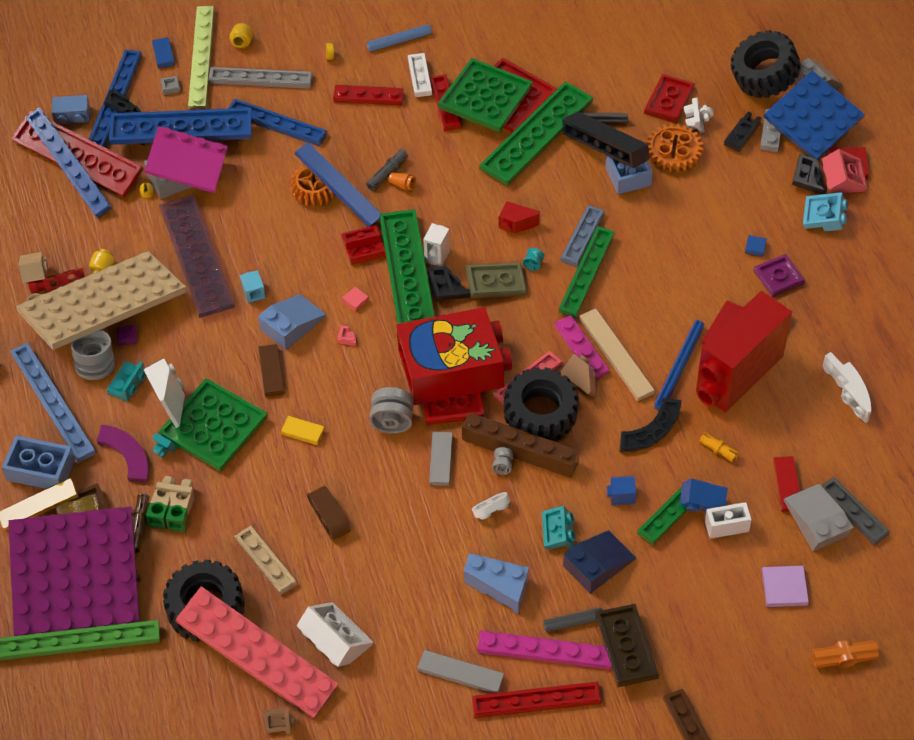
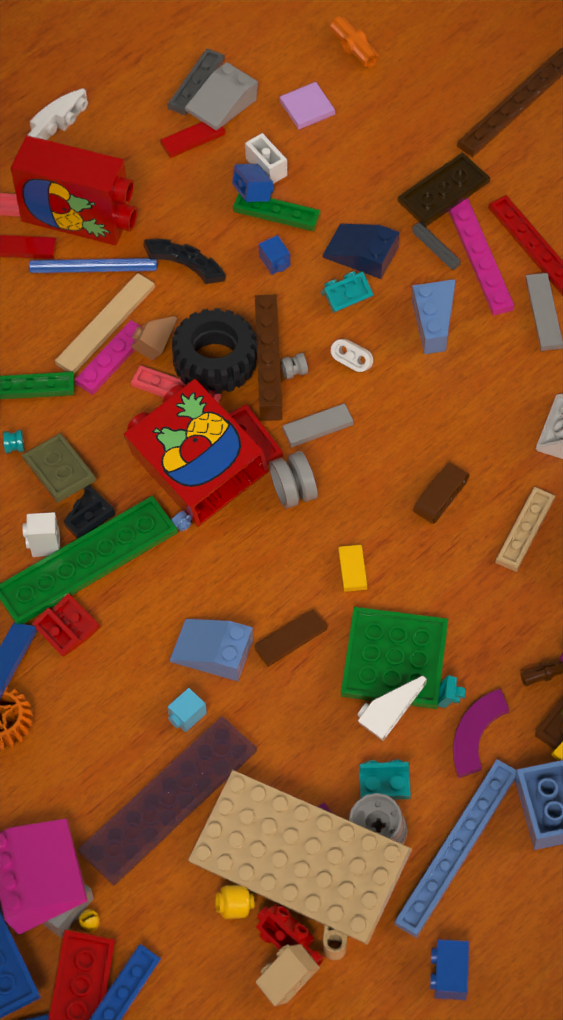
camera: 115 degrees left, 5 degrees up
(171, 505) = (517, 644): hips -> none
(346, 336) = (205, 584): coral tile -> none
(355, 299) = (149, 598): coral tile -> none
(719, 447) = (179, 200): light orange pin -> none

